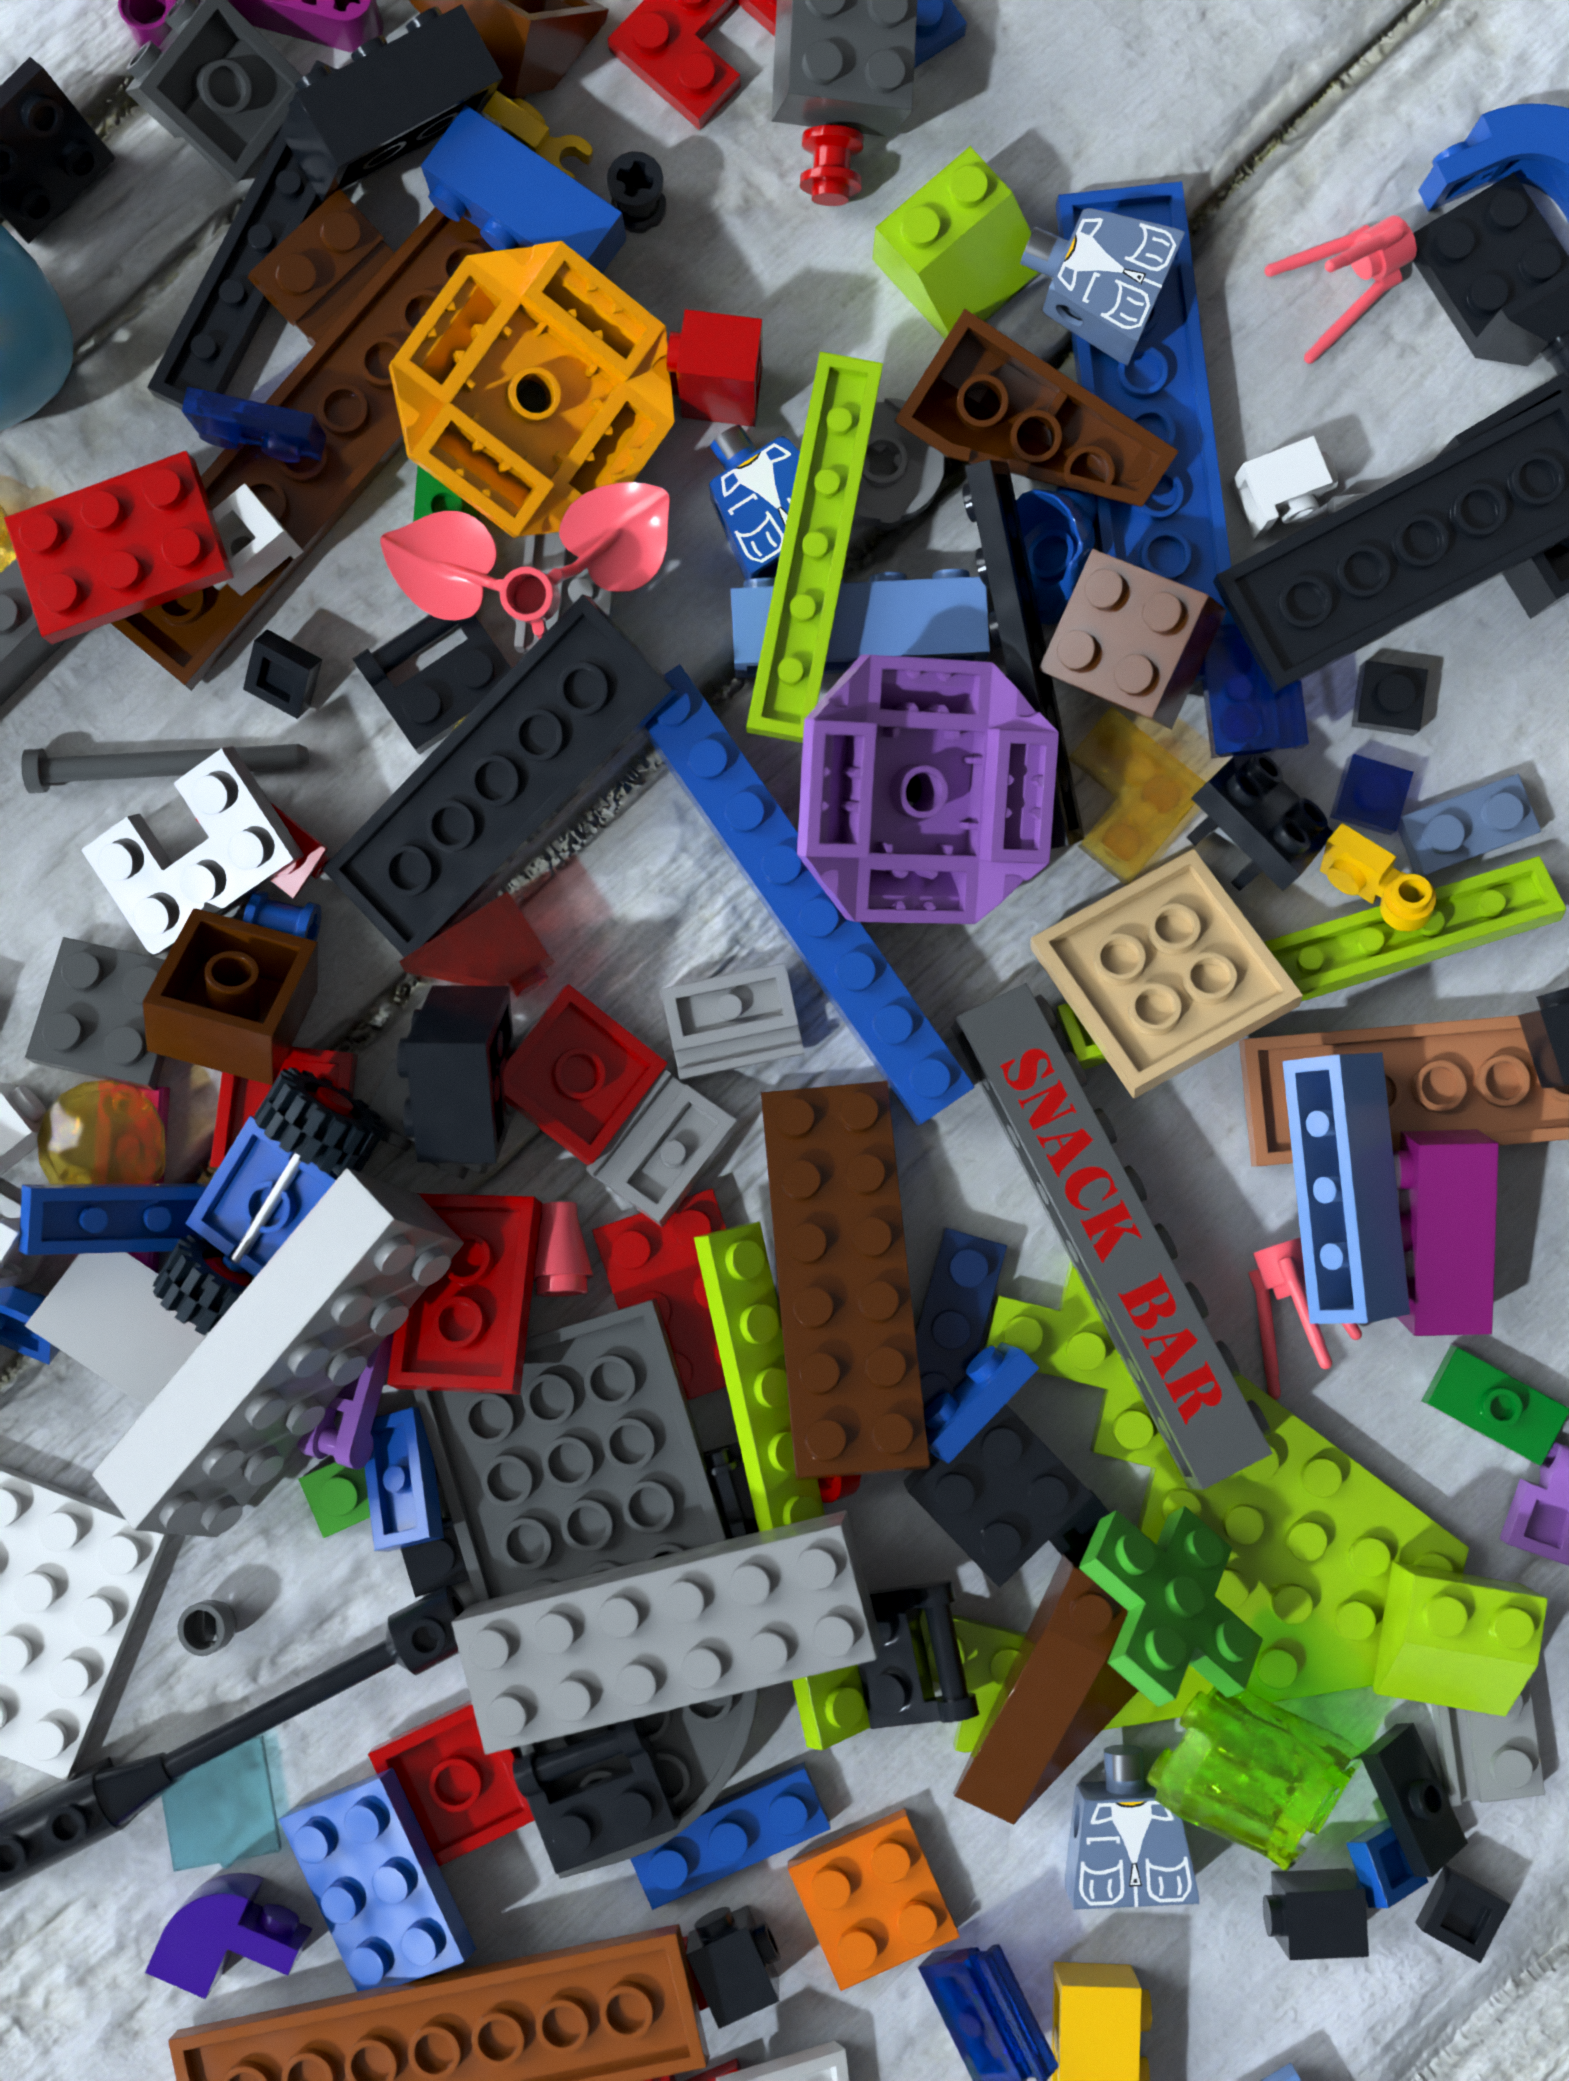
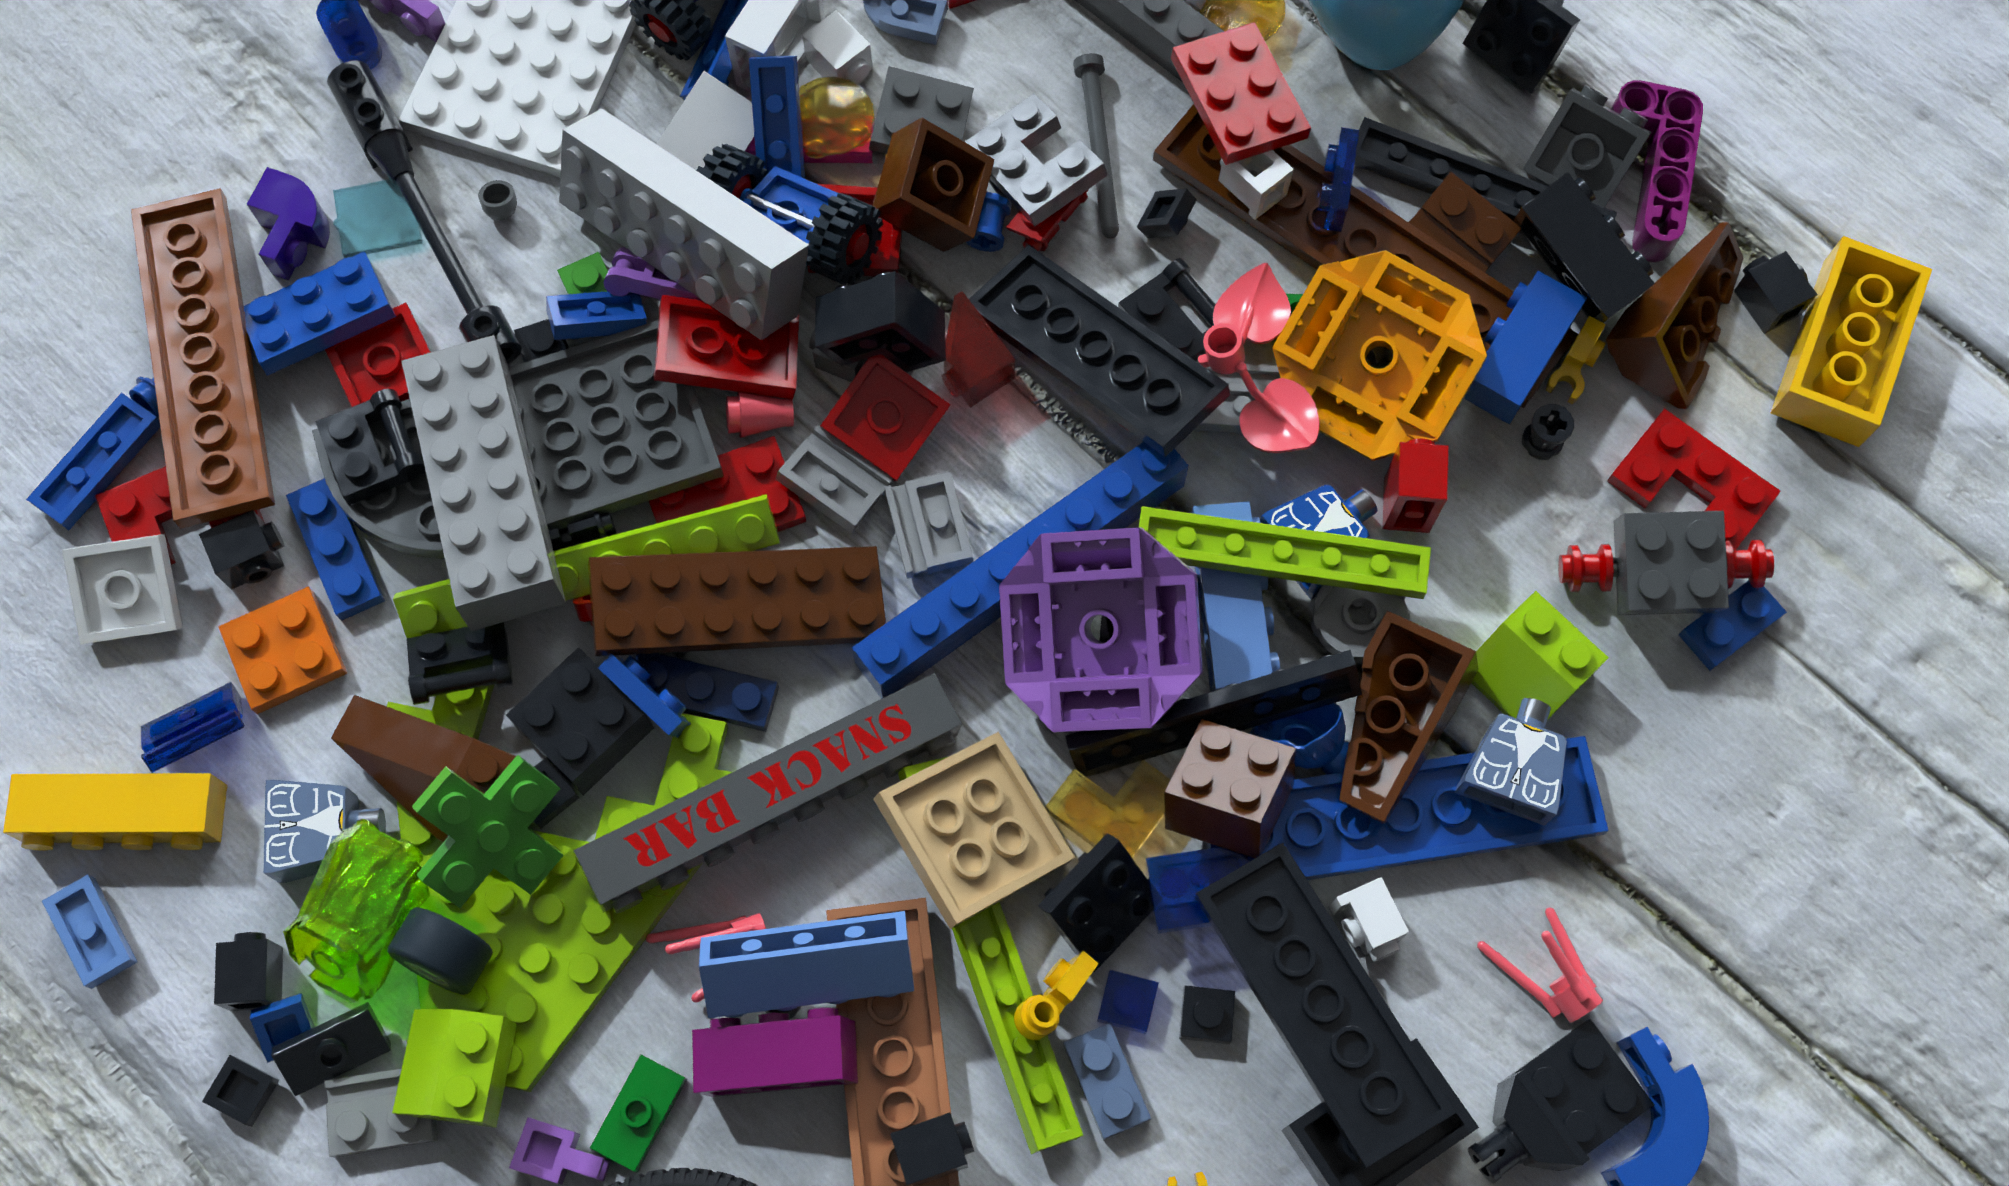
camera: 90 degrees right, 15 degrees down
(1319, 1663) = (440, 950): none -> black wheel

